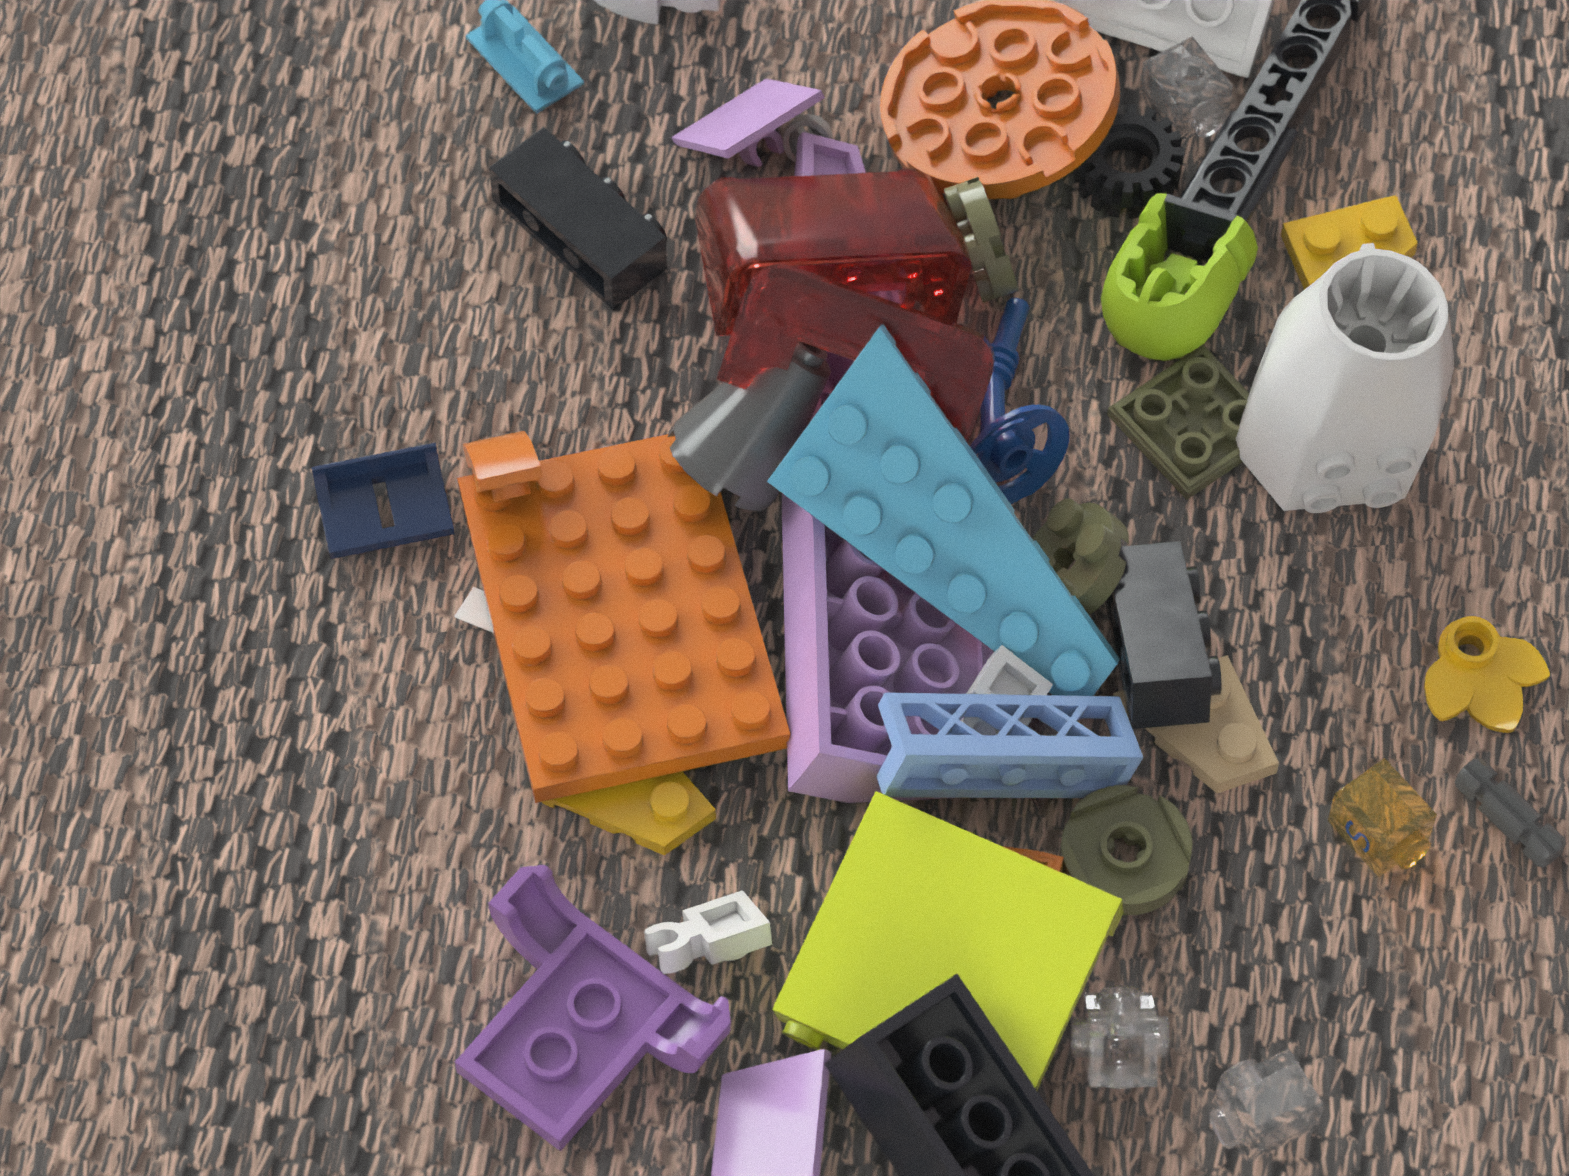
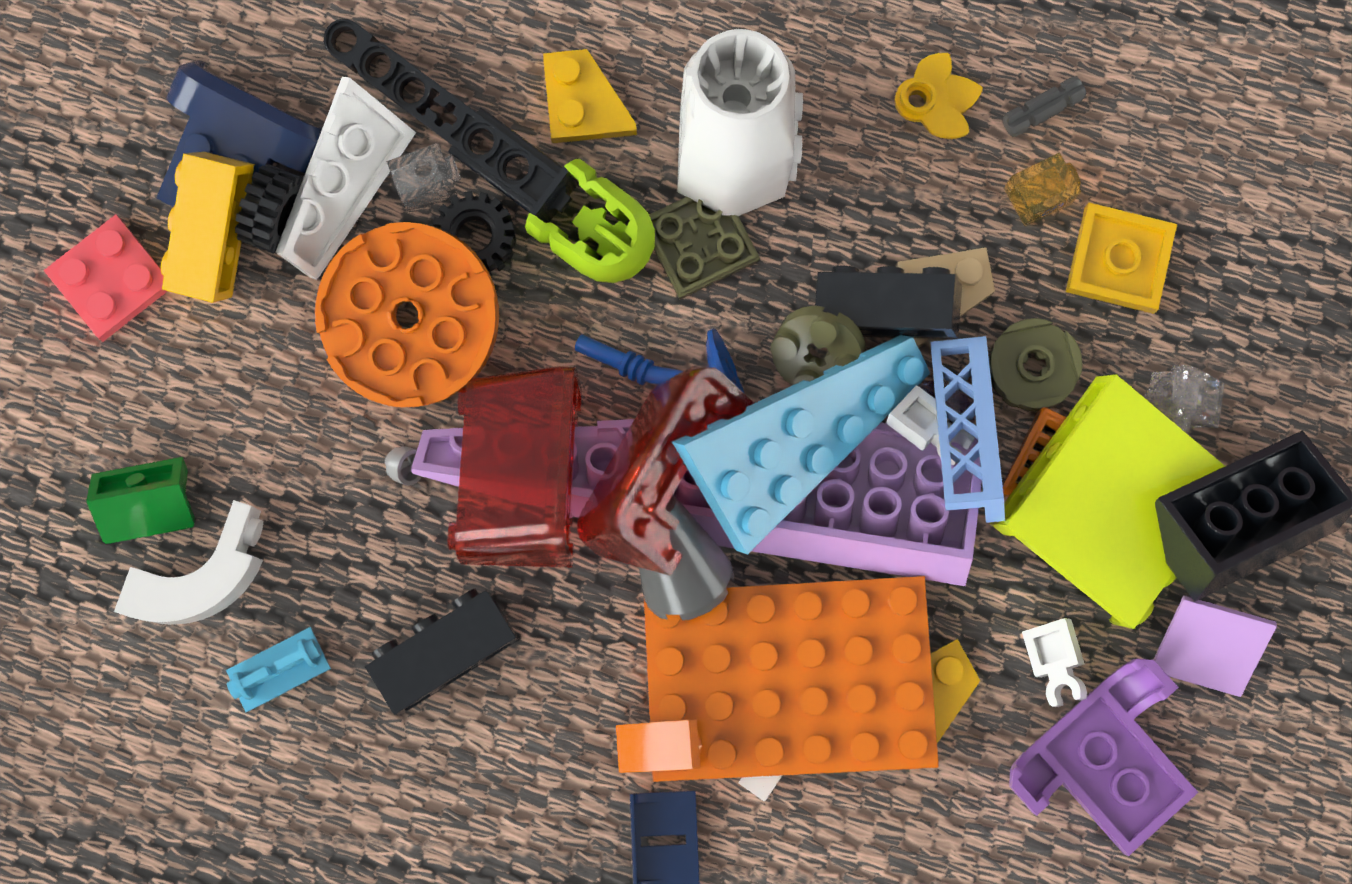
camera: 80 degrees left, 20 degrees up
(748, 119) = (383, 507): lavender piece -> none
(978, 224) = (521, 354): olive plate -> none
(1264, 1105) = (1238, 317): clear brick -> none
(1312, 941) = (1121, 258): none -> yellow plate

